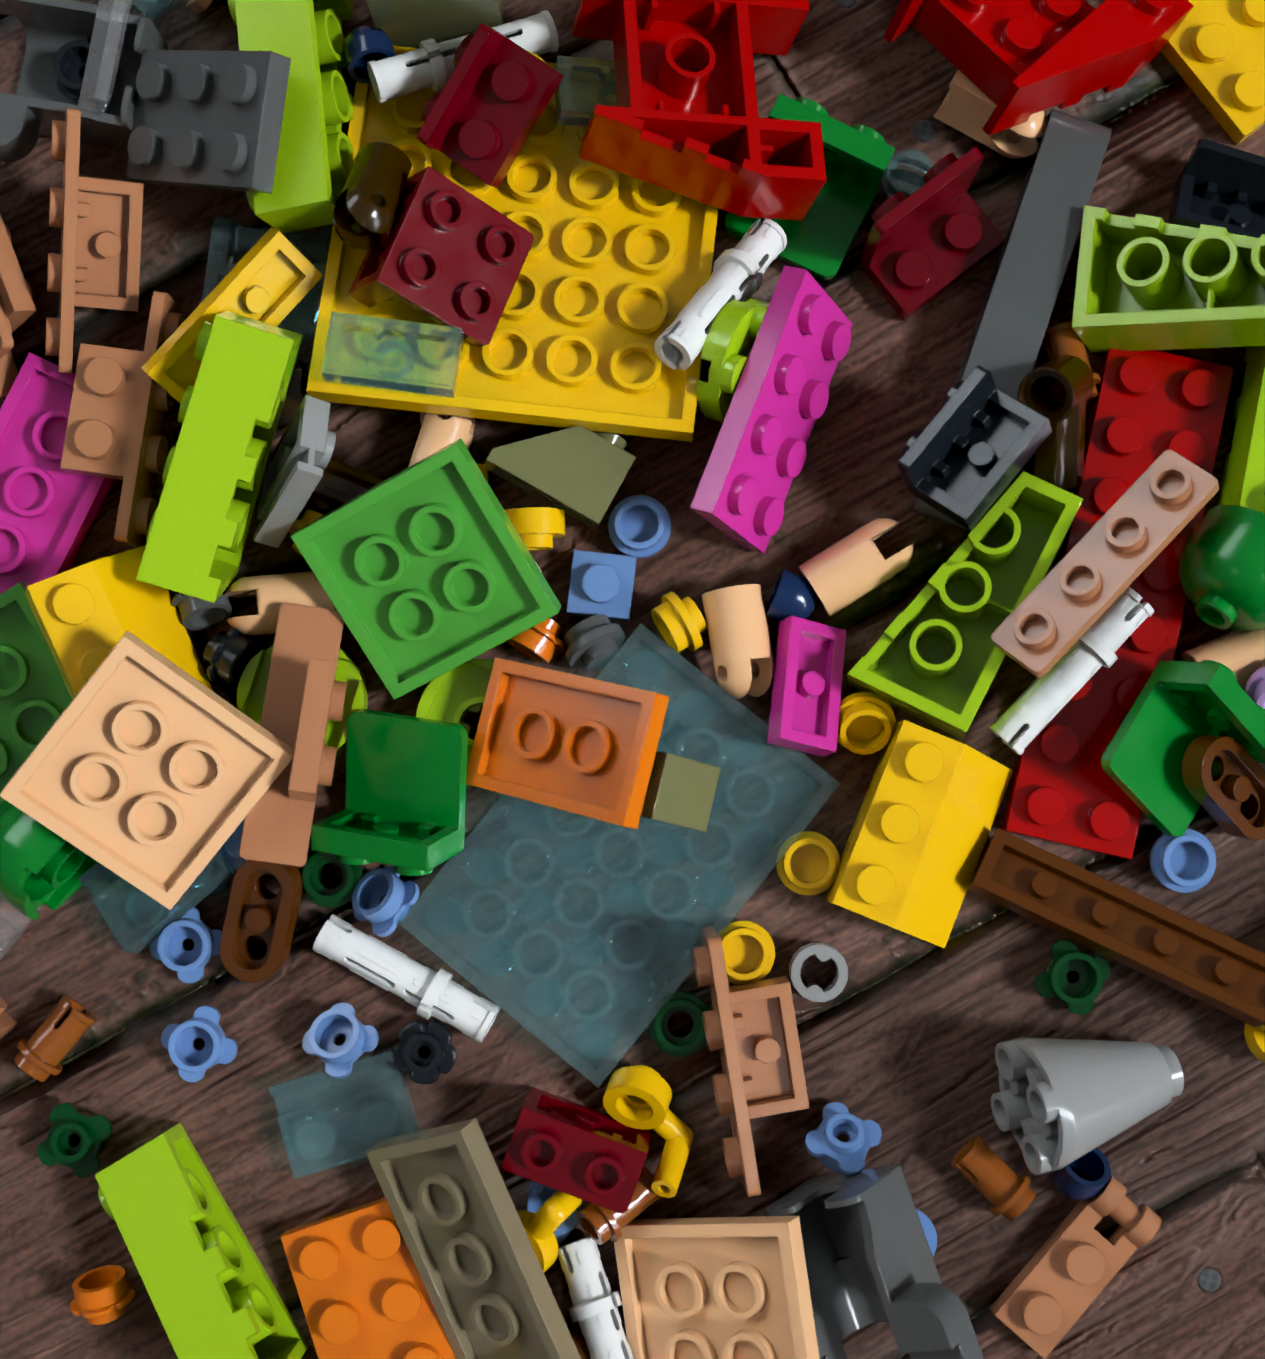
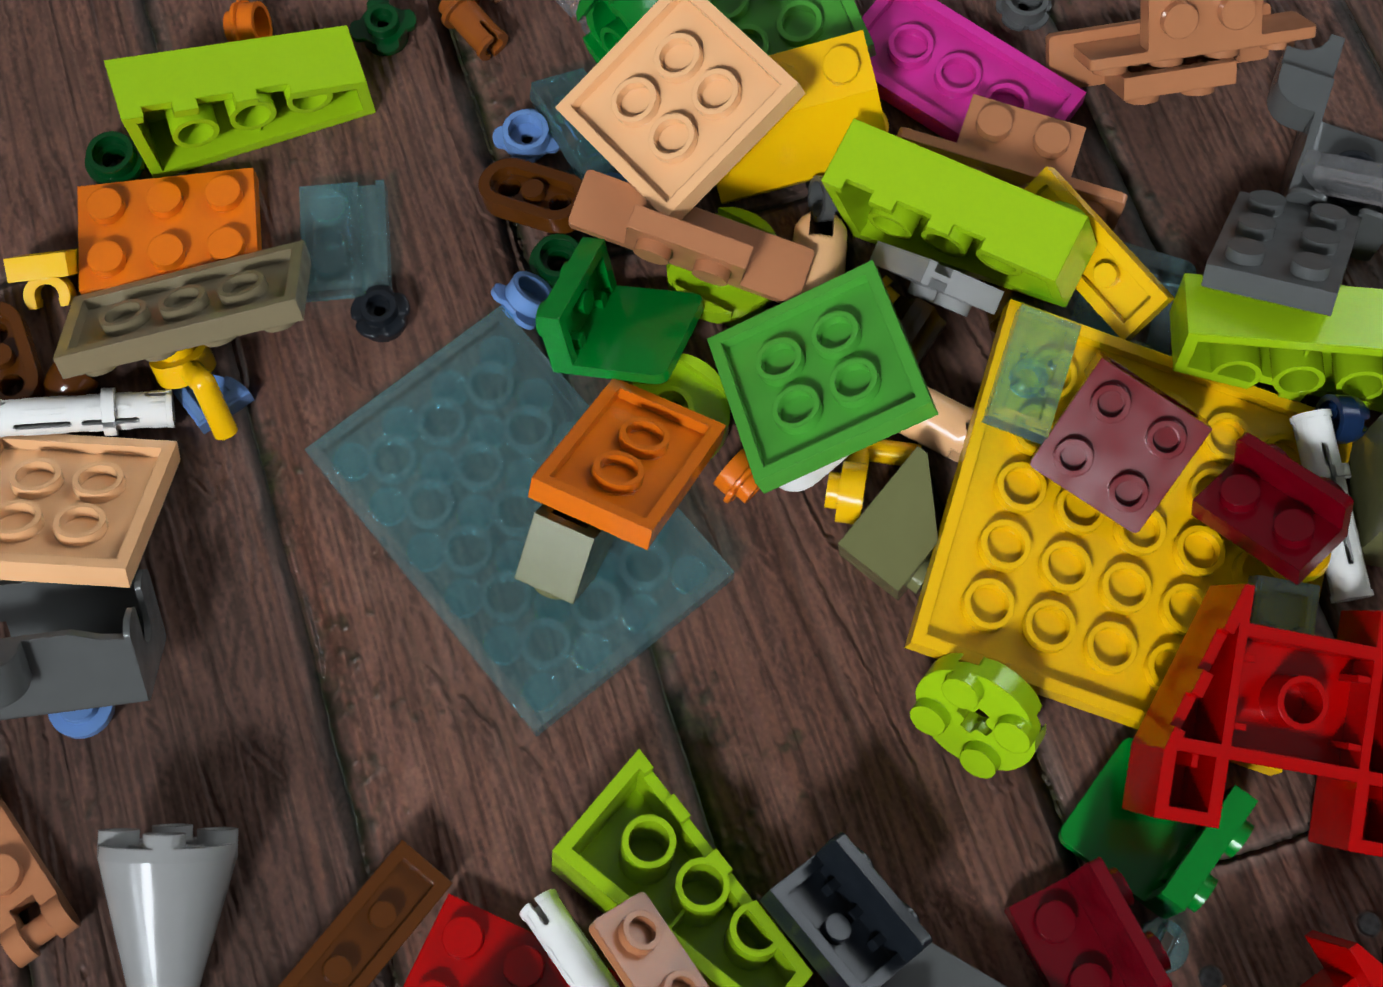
camera: 95 degrees right, 15 degrees down
(98, 241) = (1184, 155): nougat bracket -> none
(180, 1044) = (435, 119): medium blue plate -> none
(229, 655) = (779, 209): black plate -> none
(327, 1027) = (419, 233): medium blue plate -> none
(371, 195) = (1191, 377): dark brown piece -> none
(417, 984) = (433, 324): white pin -> none
(577, 1150) = (255, 418): dark red bracket -> none
(593, 642) = (725, 526): dark grey plate -> none
(601, 585) = (780, 550): medium blue plate -> none
(606, 1224) = (193, 448): dark orange pin -> none
(639, 526) = (831, 595): medium blue plate -> none
(641, 1101) = (281, 489): yellow plate -> none
(676, 1044) = (330, 528): dark green plate -> none
(679, 622) = (727, 610): yellow plate -> none
(735, 275) = (1068, 722): white pin -> none
(739, 639) = (702, 665): light nougat piece -> none
(747, 952) = (394, 611): yellow plate -> none
(758, 1053) = (300, 594): nougat bracket -> none
(773, 411) = (923, 734): dark pink plate -> none
(791, 597) = (730, 725): dark blue hinge -> none
(807, 686) = (638, 717): dark pink plate -> none
(809, 864) = (464, 691): yellow plate -> none
(813, 991) = (375, 684): light grey bush -> none
(837, 1155) = (173, 667): medium blue plate -> none
(853, 566) = (748, 788): light nougat piece -> none
(865, 722) = (588, 768): yellow plate -> none
(919, 833) = (464, 802): yellow slope -> none
(994, 1179) = (110, 804): dark orange pin -> none
(1083, 1176) = (92, 903): dark blue hinge -> none
(1090, 972) = (281, 912): dark green plate -> none

